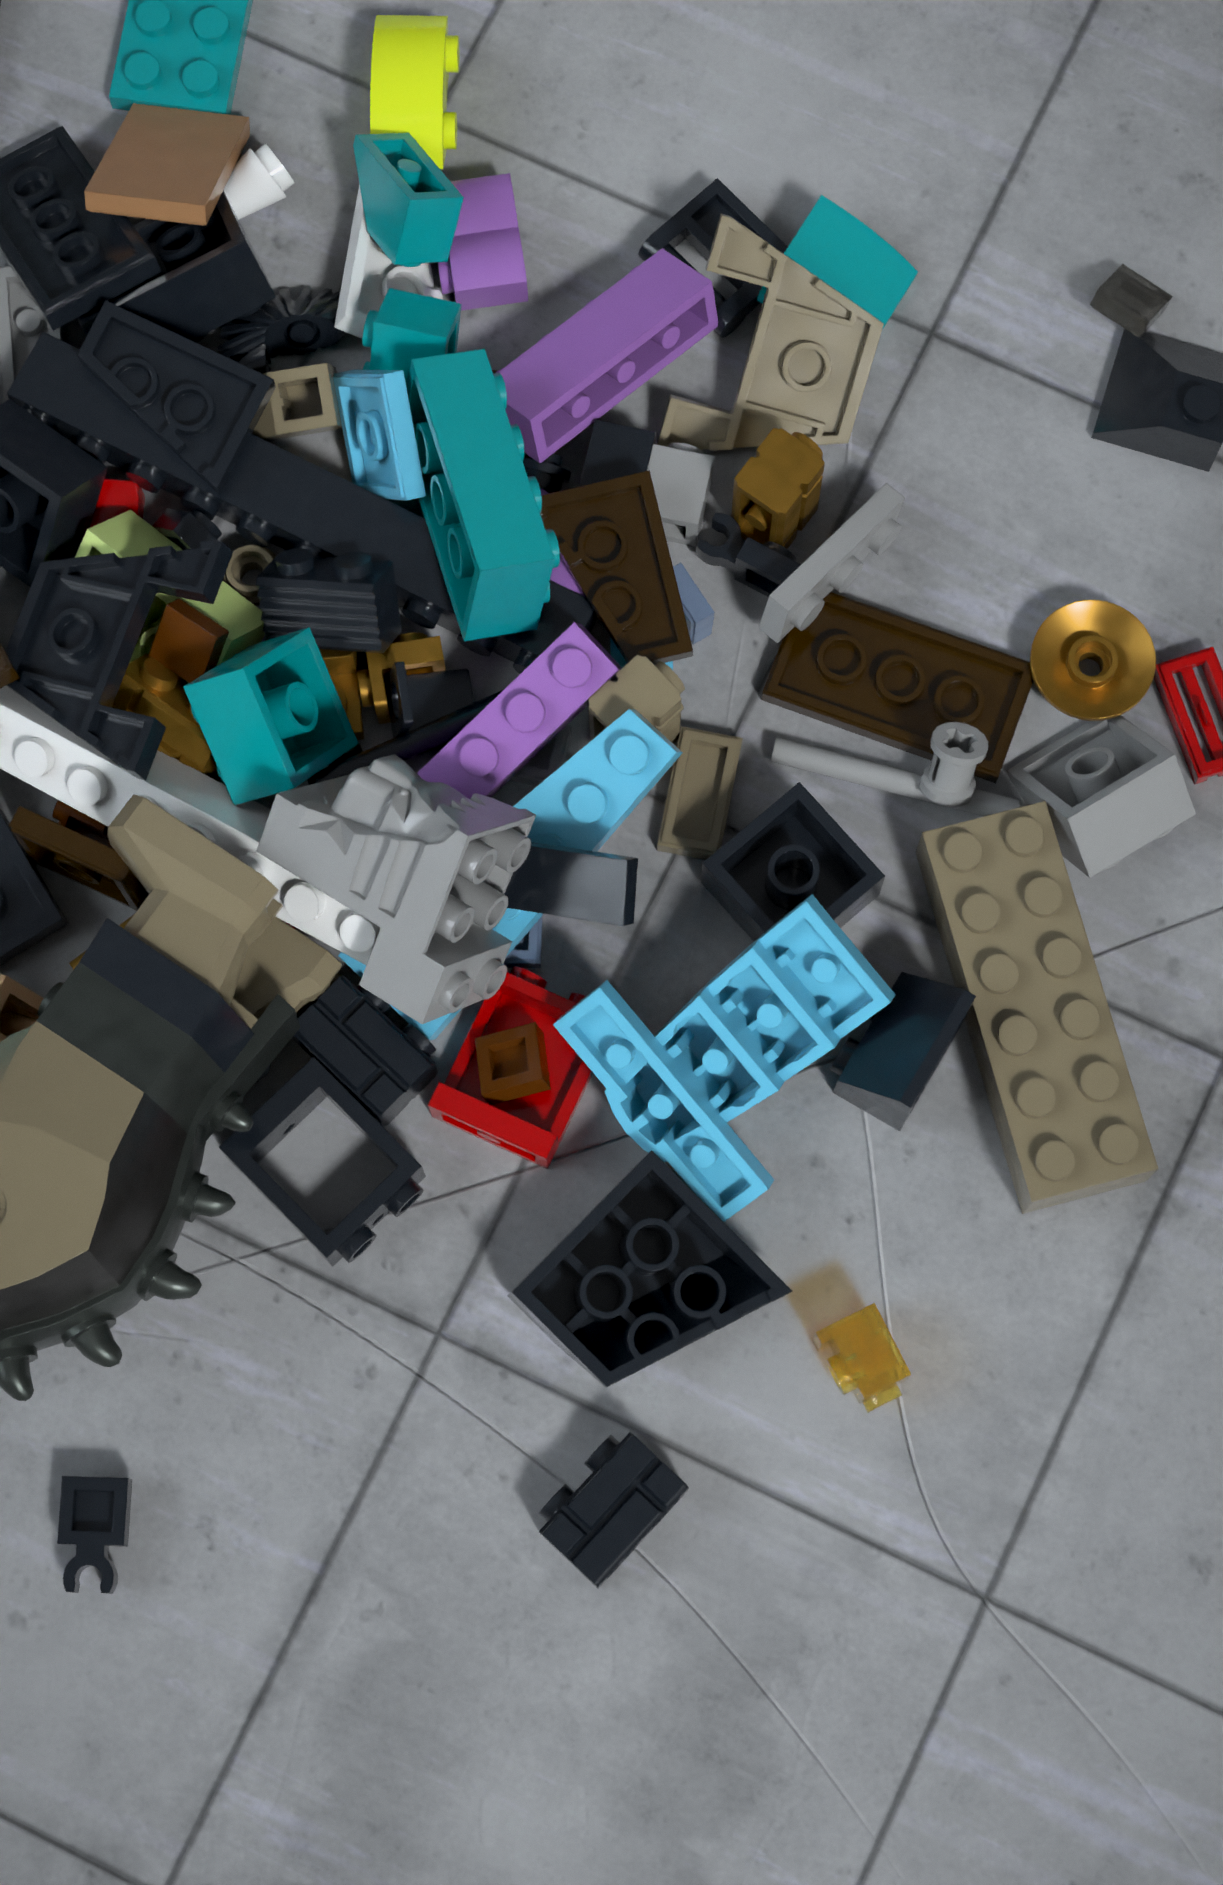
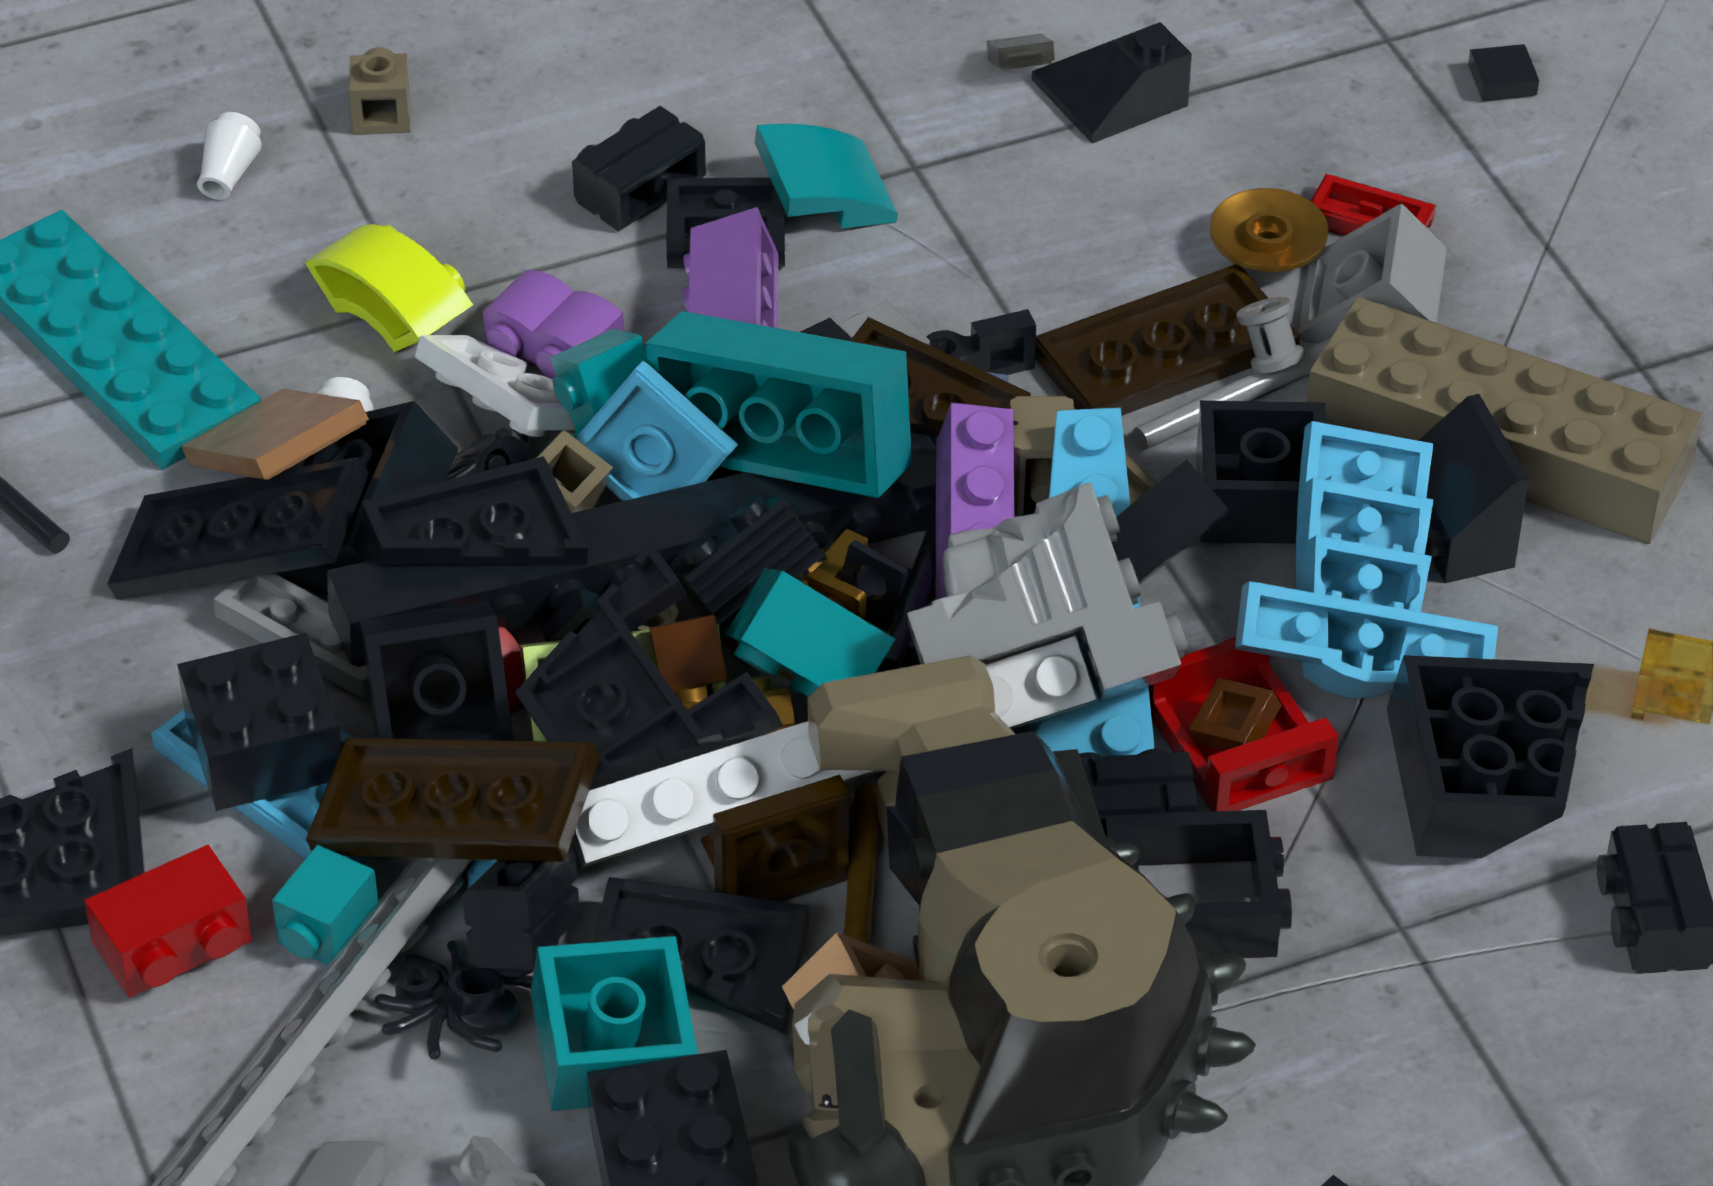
camera: 50 degrees left, 30 degrees down
(406, 199) = (487, 318): teal slope -> none
(713, 141) = (631, 168): none -> black brick
(778, 488) = (955, 275): pearl gold brick -> none
(803, 360) = (864, 209): dark tan wing -> none
(833, 564) = (1045, 298): light grey plate -> none

